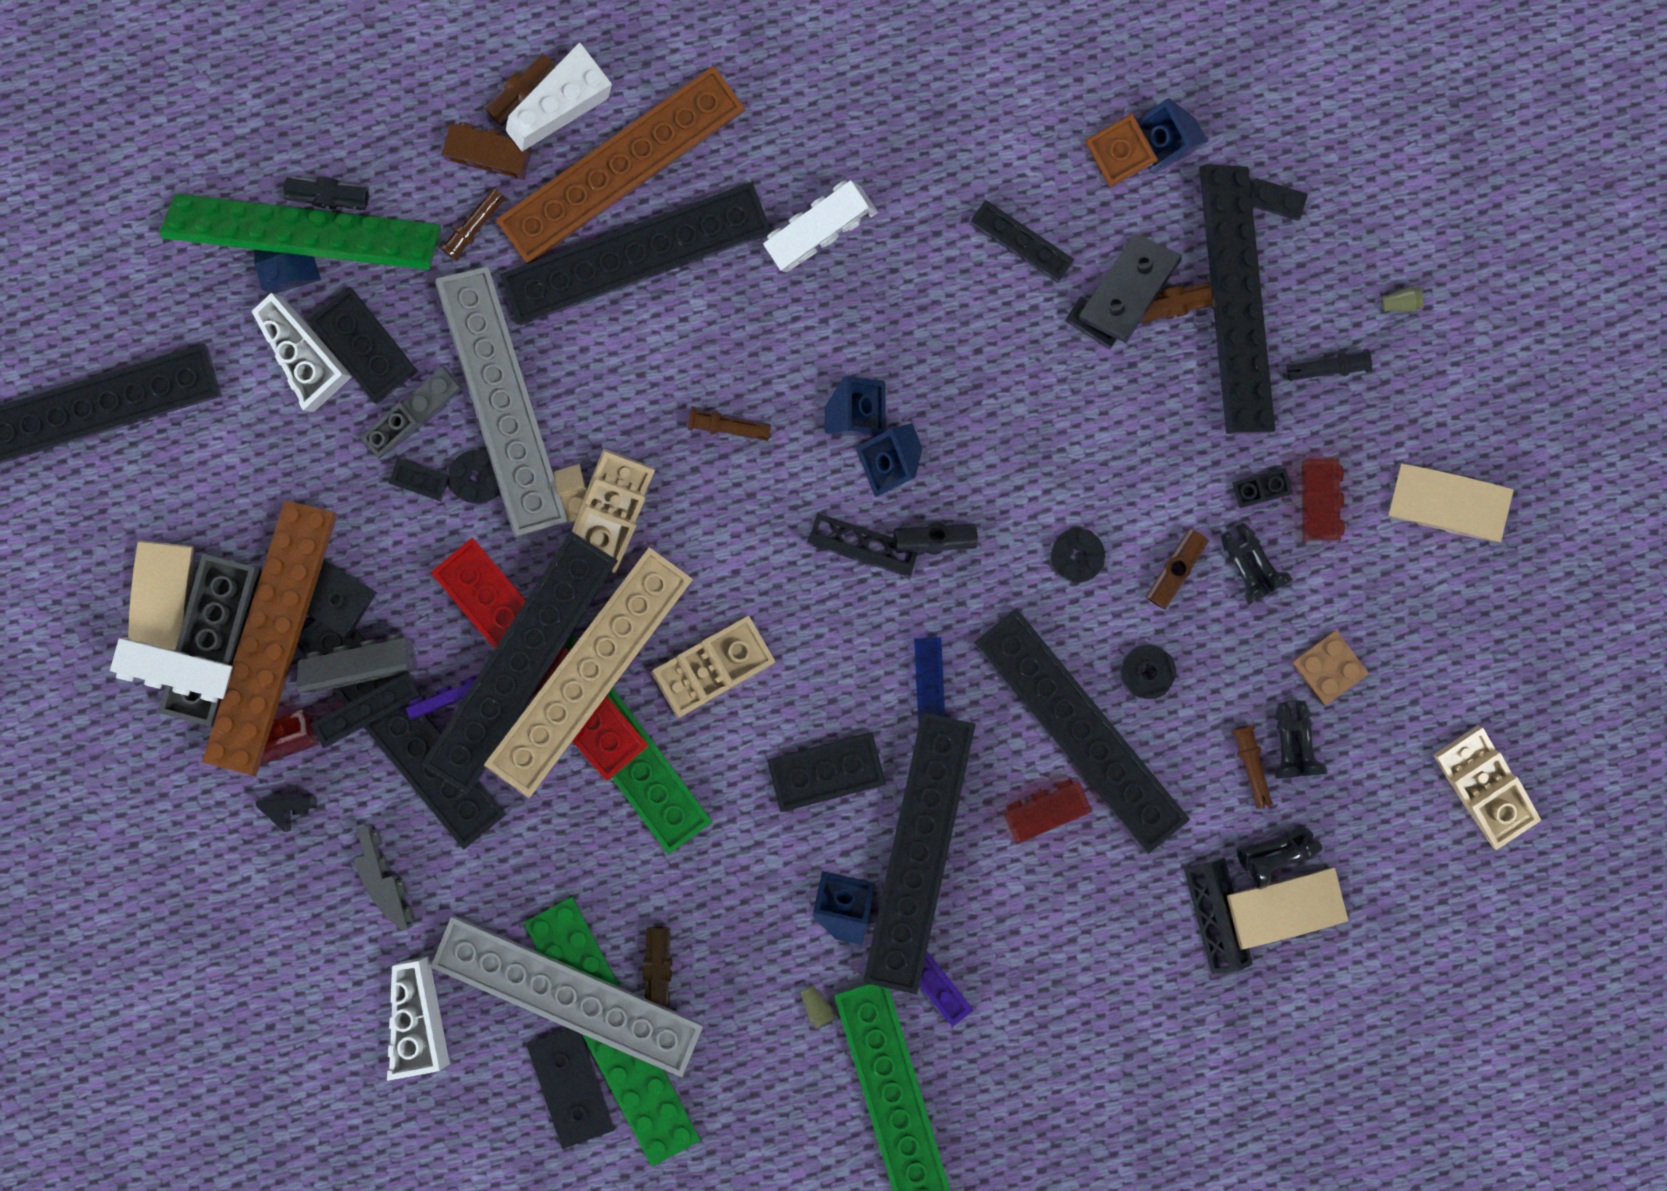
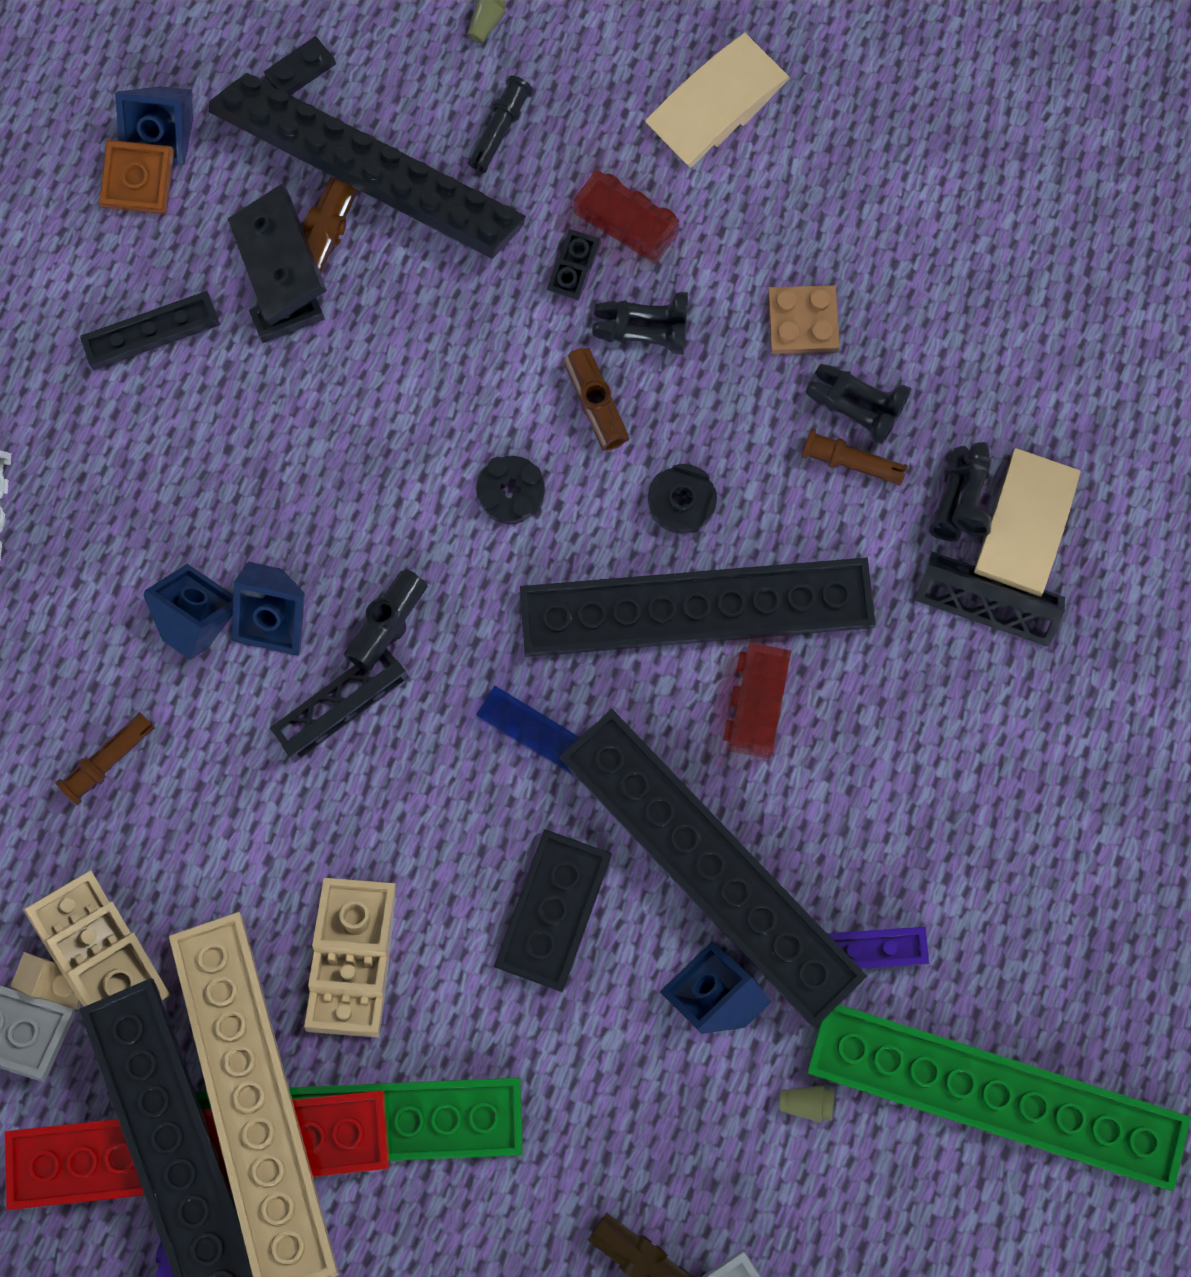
camera: 55 degrees left, 10 degrees down
(1487, 787) = (1029, 248): tan slope -> none

